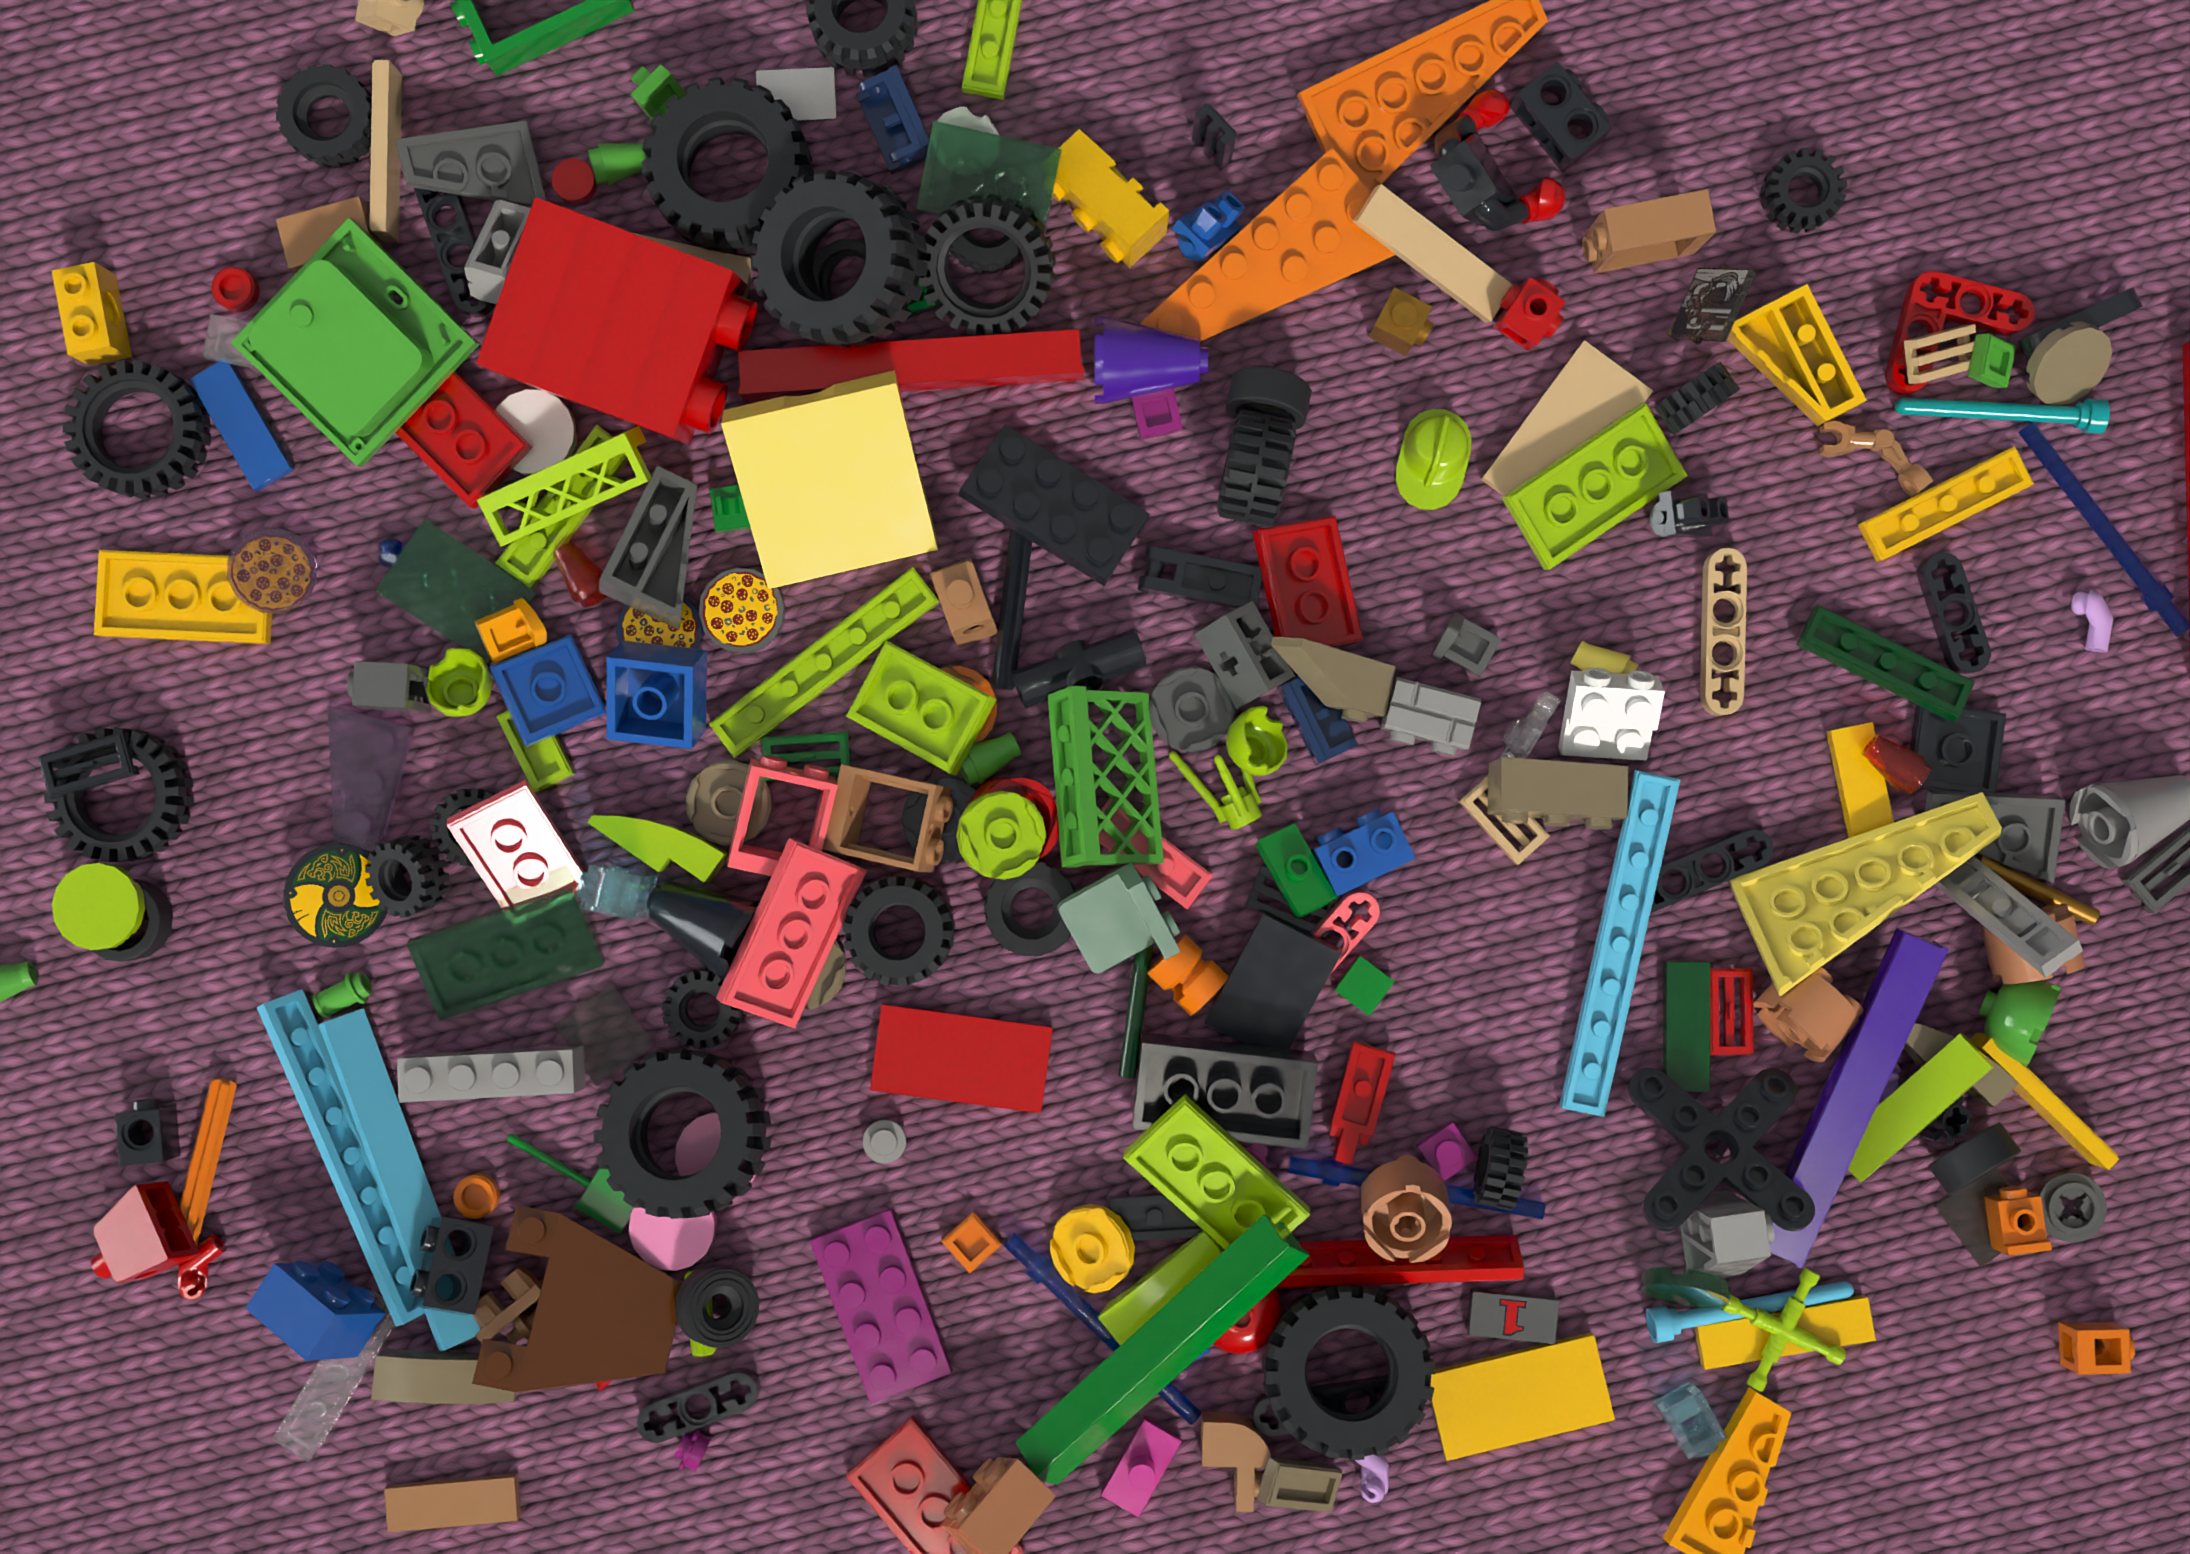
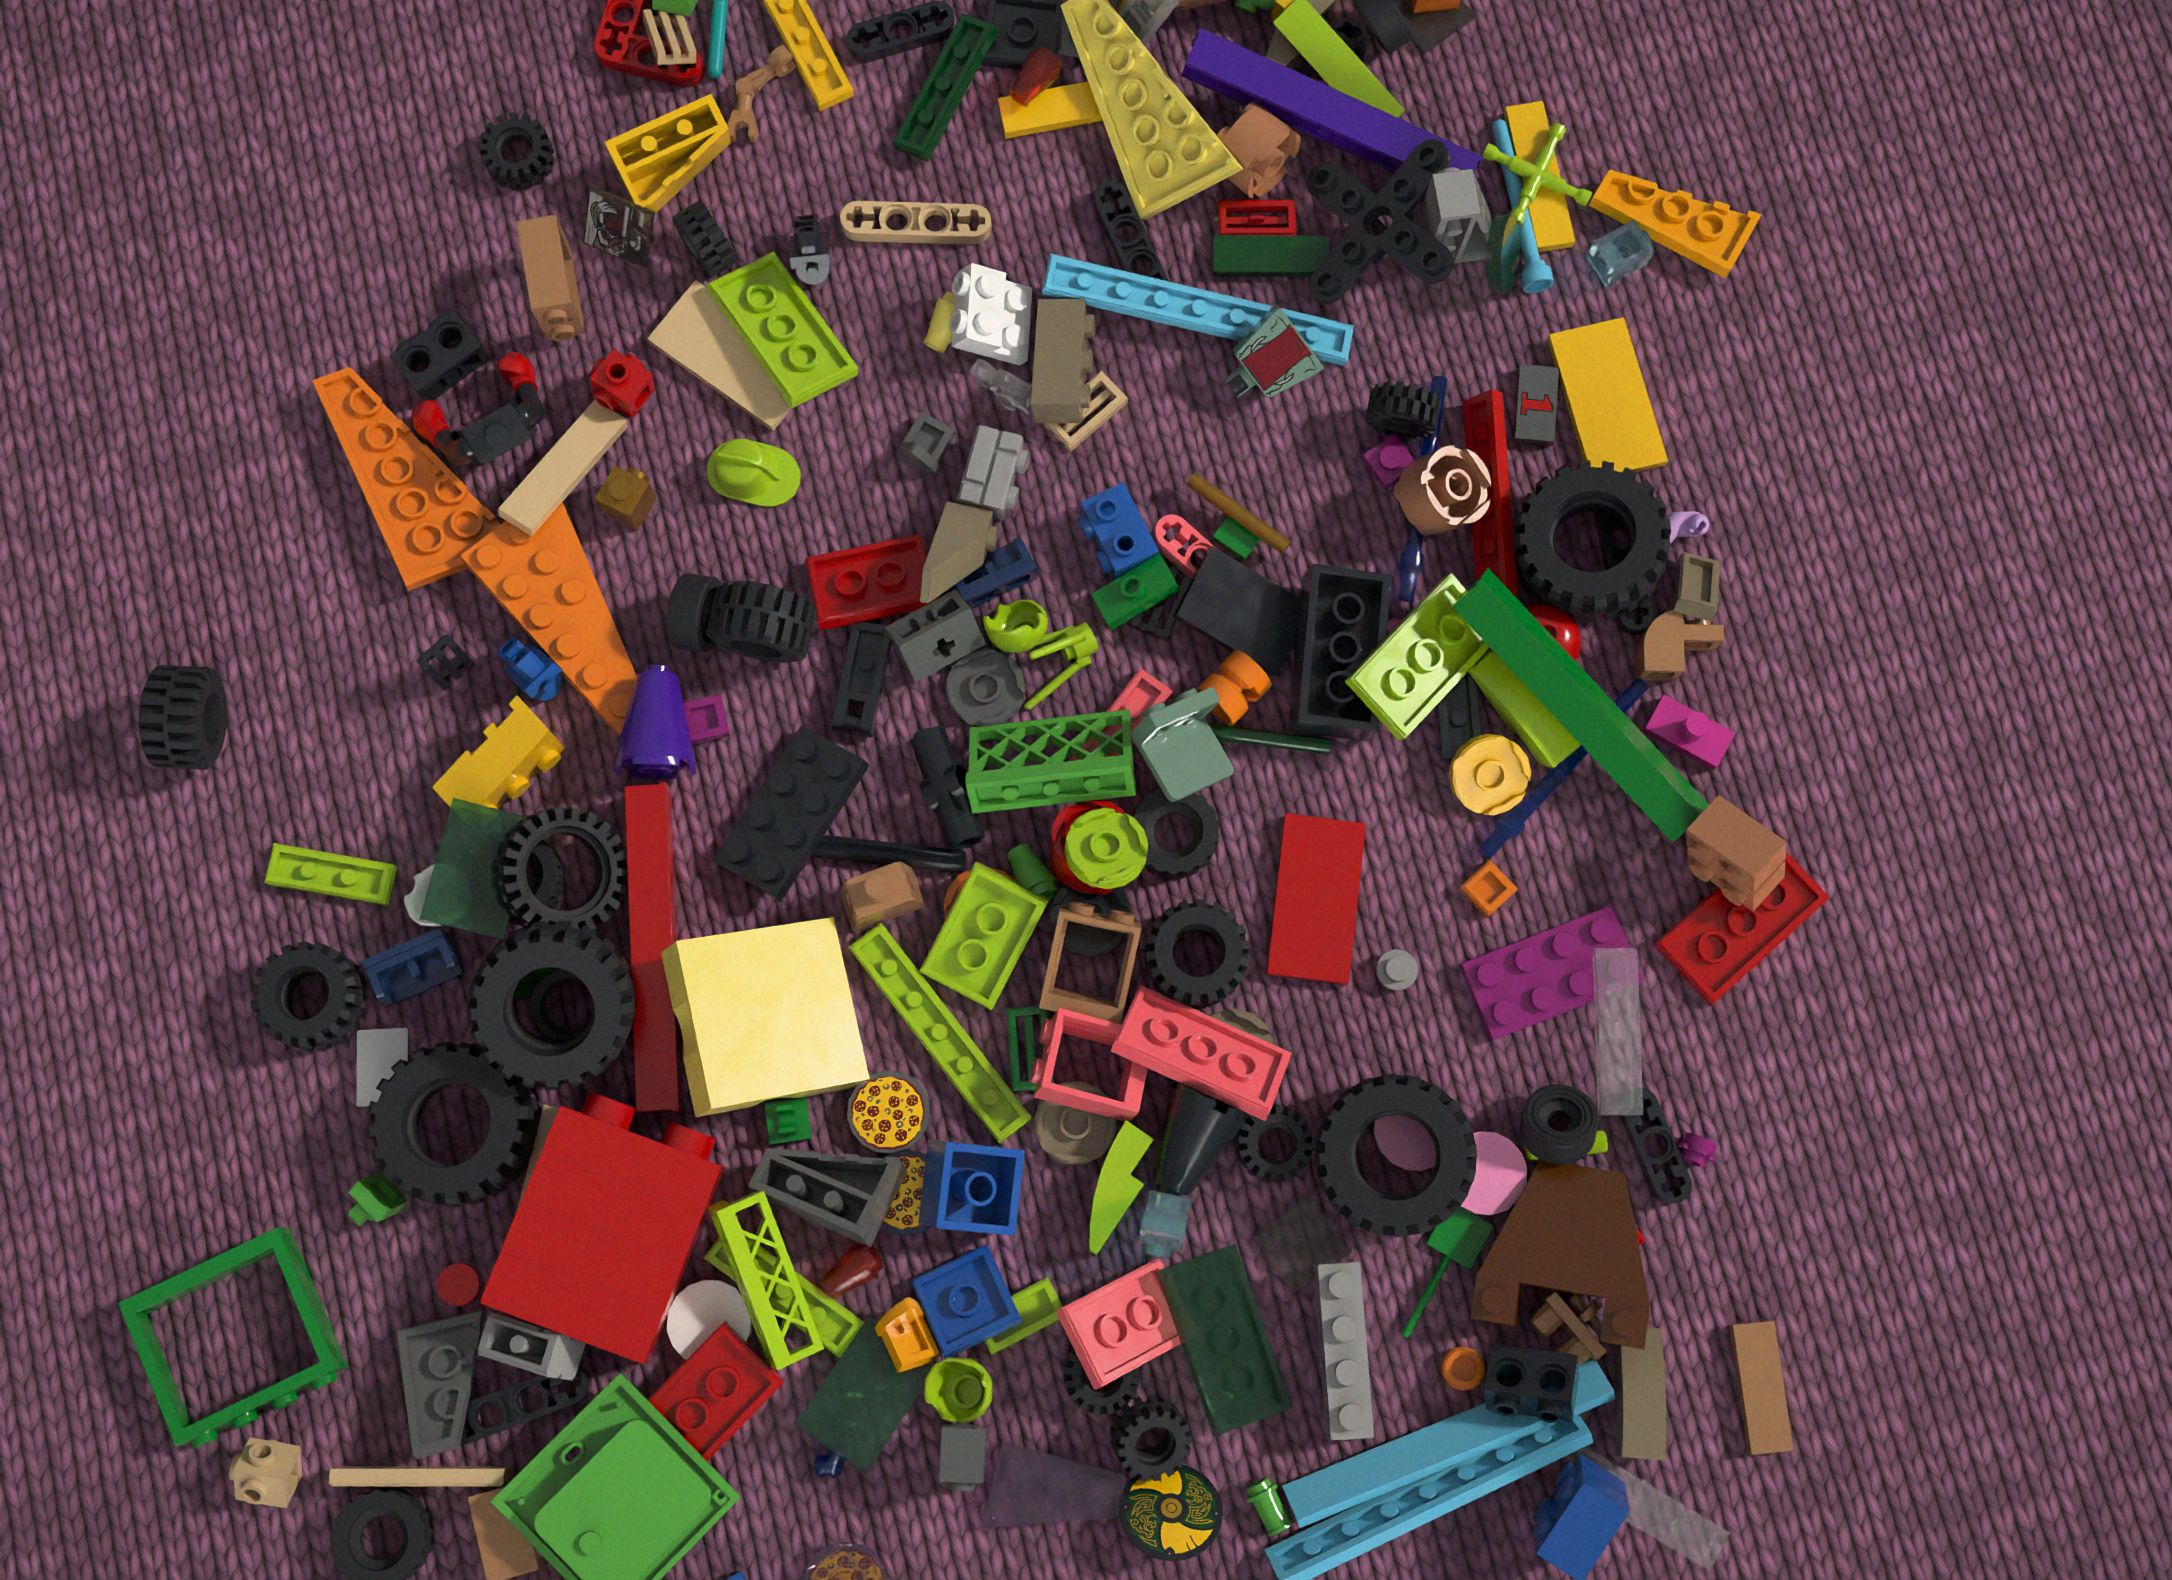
camera: 95 degrees left, 10 degrees down
(616, 161) = (441, 1238): bright green cone -> none
(812, 1373) = (1617, 1032): none -> clear tile
(1359, 1098) = (1344, 536): red hinge -> none
(1384, 983) = (1238, 513): none -> pearl gold bar
(1562, 1025) = (1272, 357): none -> torso

